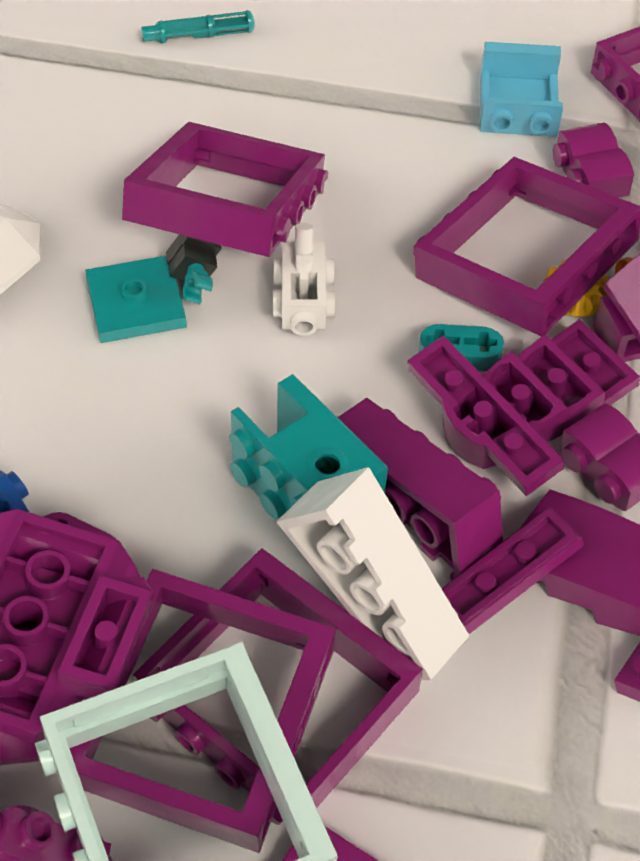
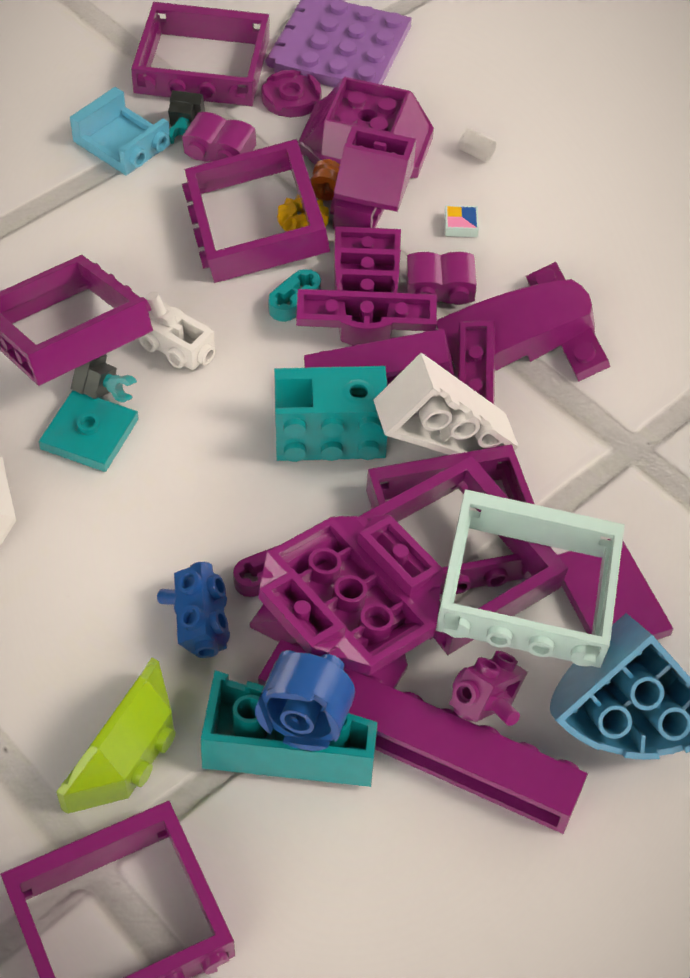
camera: 55 degrees left, 0 degrees up
(599, 108) = (182, 111): none -> pearl dark grey piece

